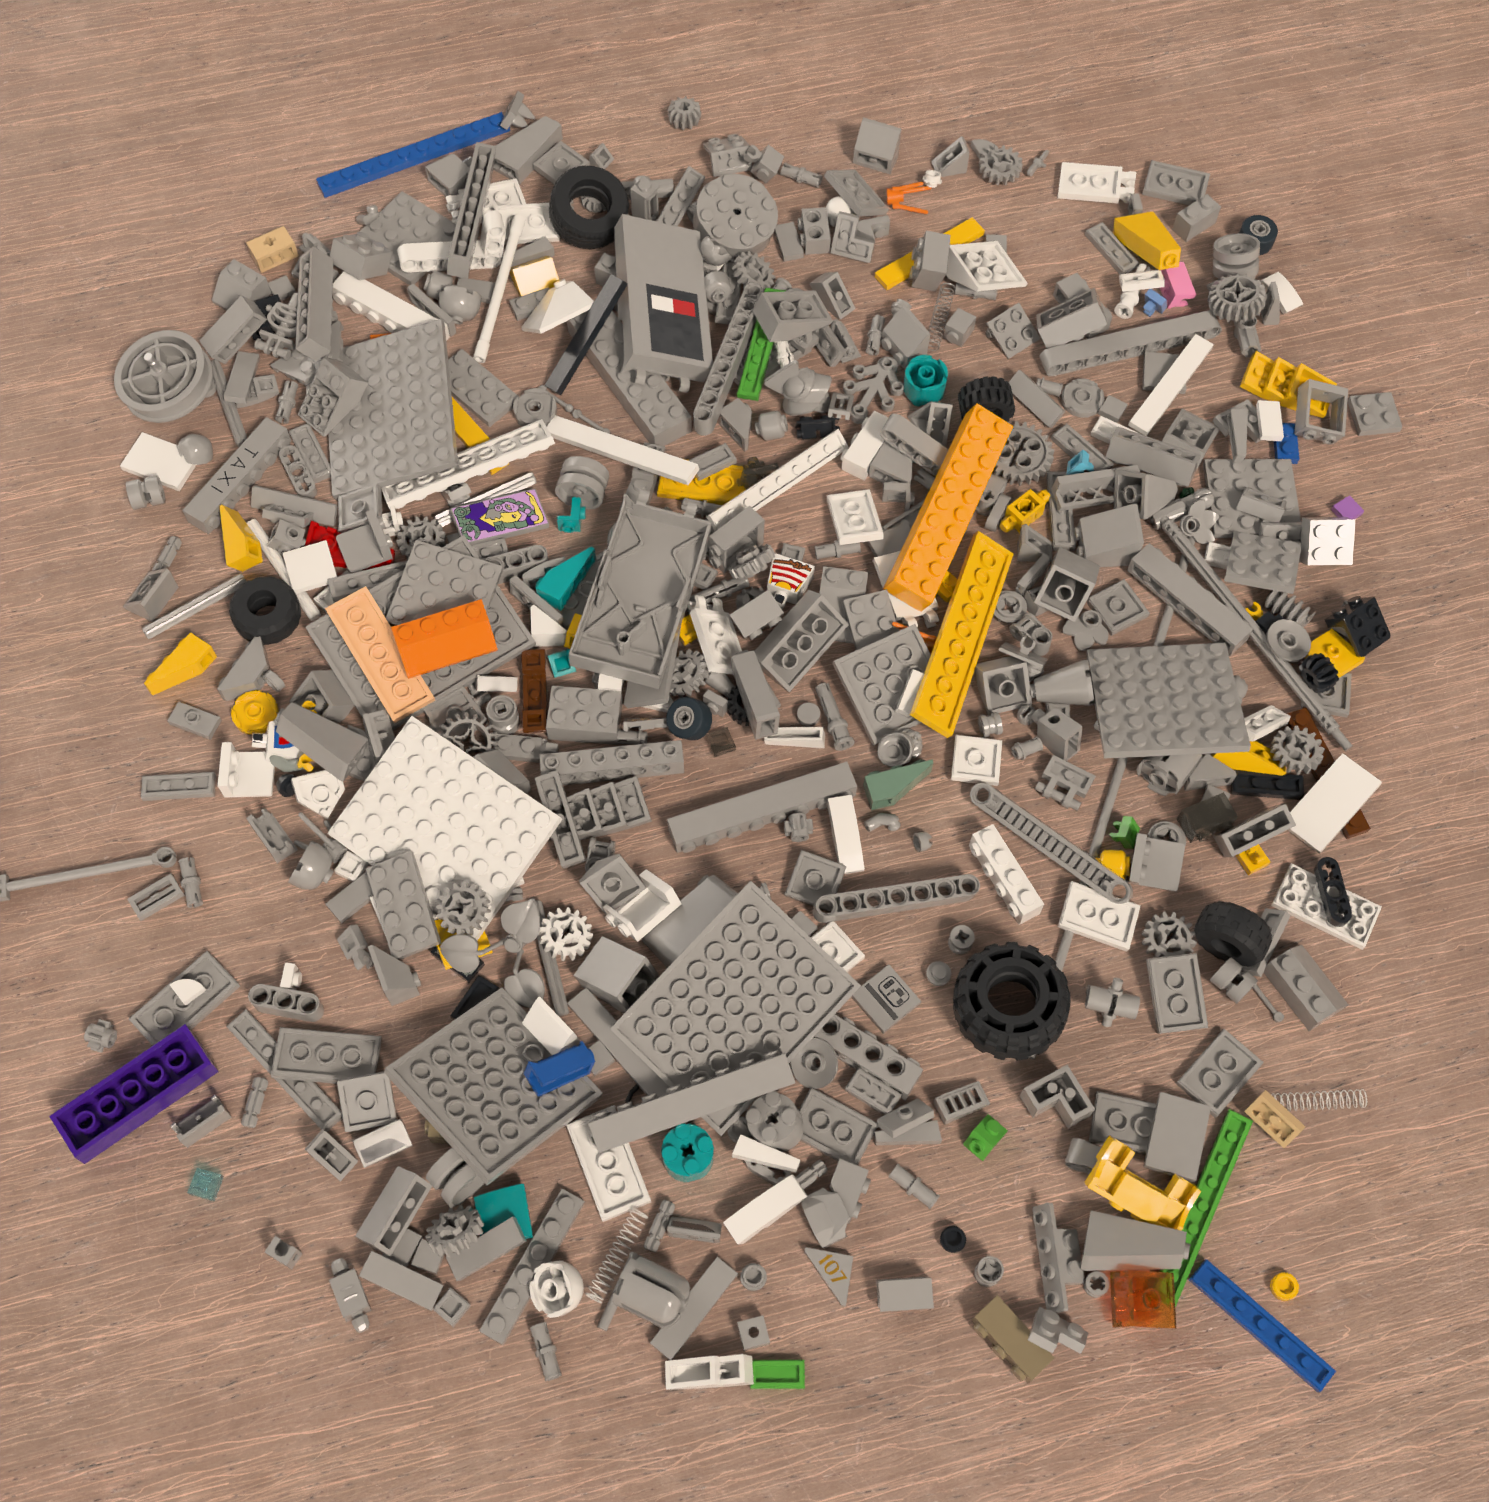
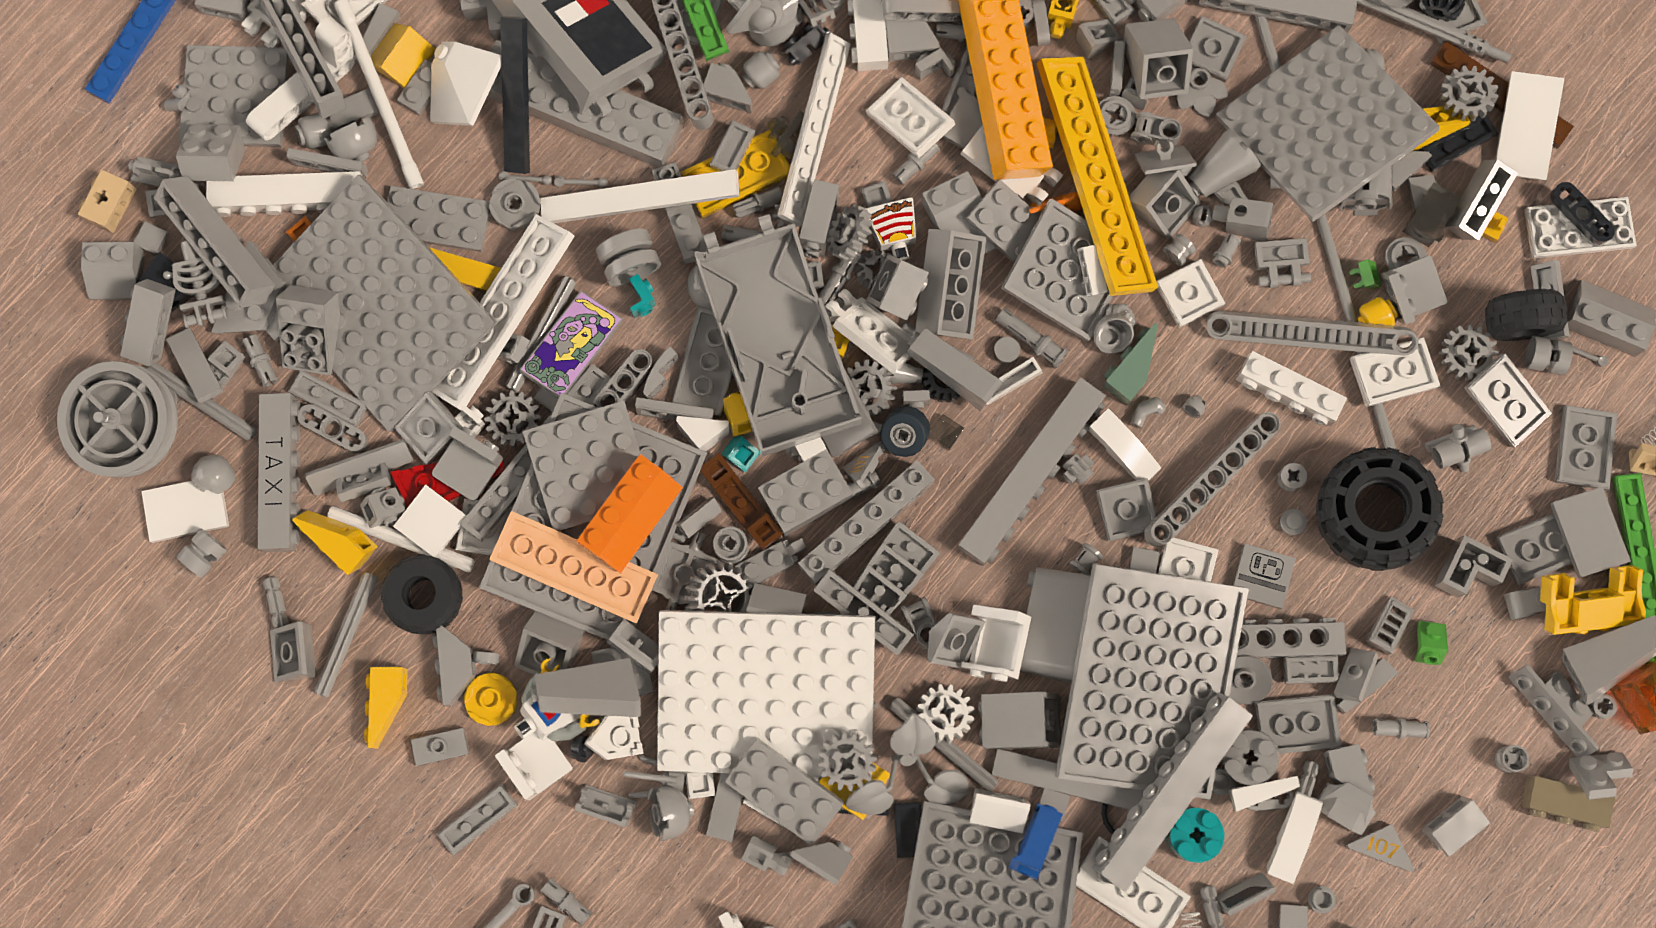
camera: 30 degrees left, 15 degrees up
(563, 580) = (684, 376): teal slope -> none
(953, 1239) = (1462, 751): black plate -> none
(1265, 722) = (1423, 83): white plate -> none

